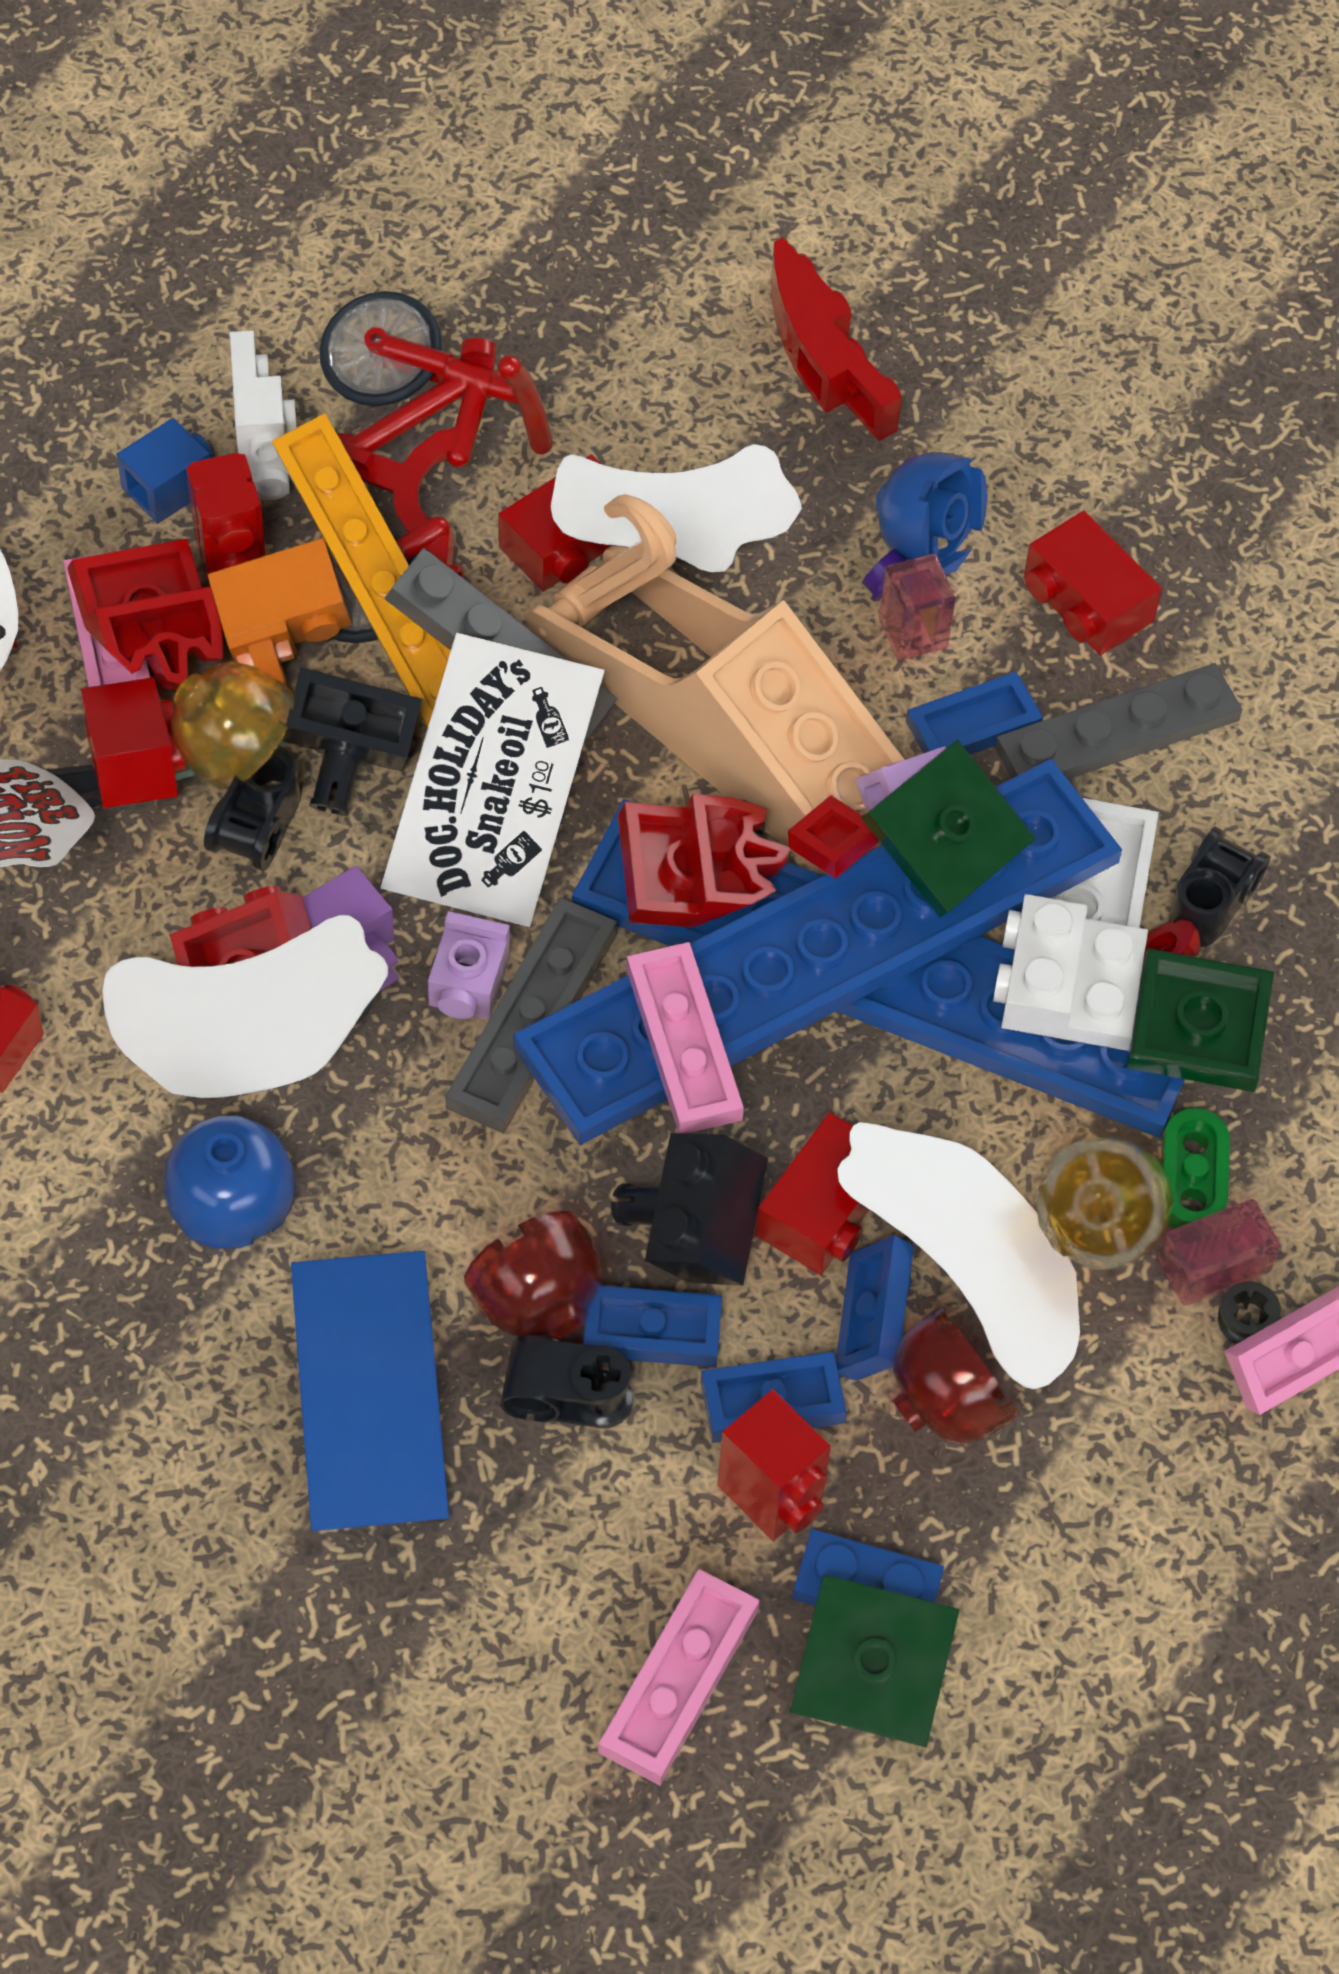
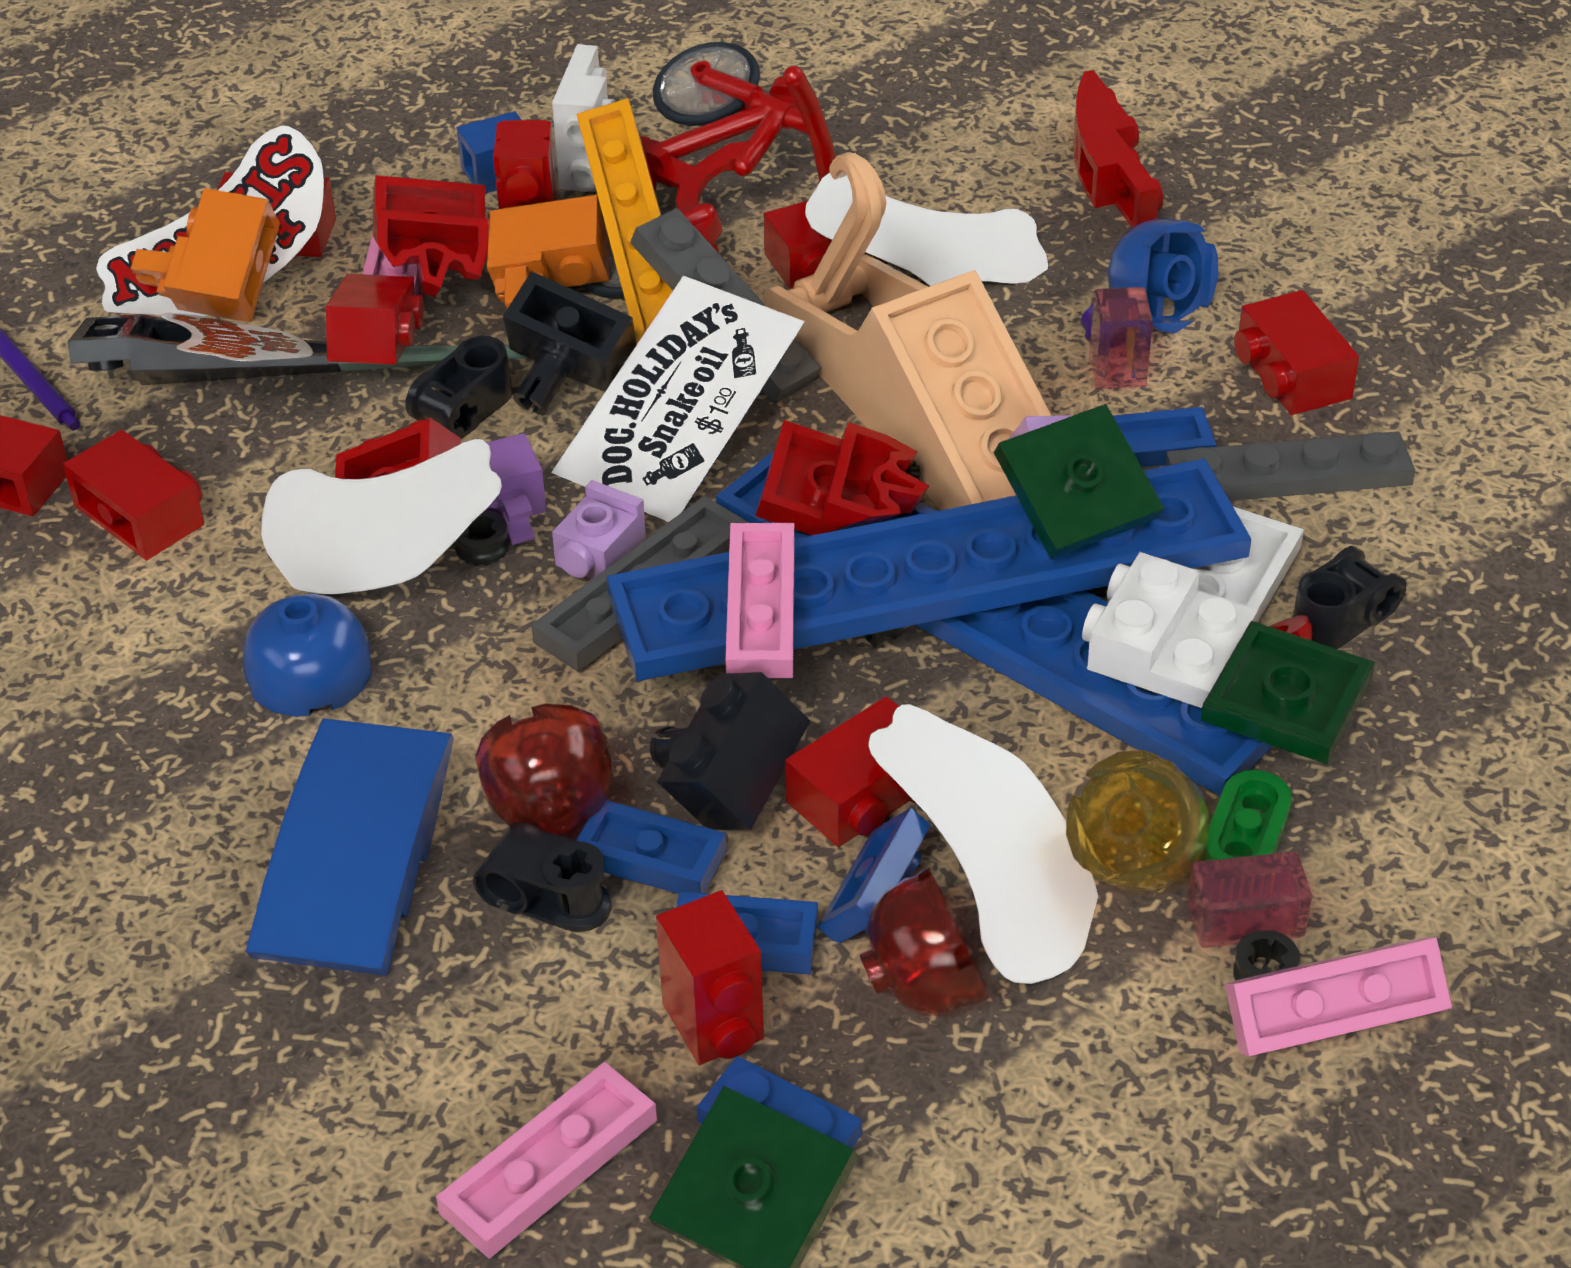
camera: 20 degrees right, 15 degrees down
(228, 721) = (452, 301): clear yellow cylinder -> none
(831, 837) = (966, 474): red plate -> none

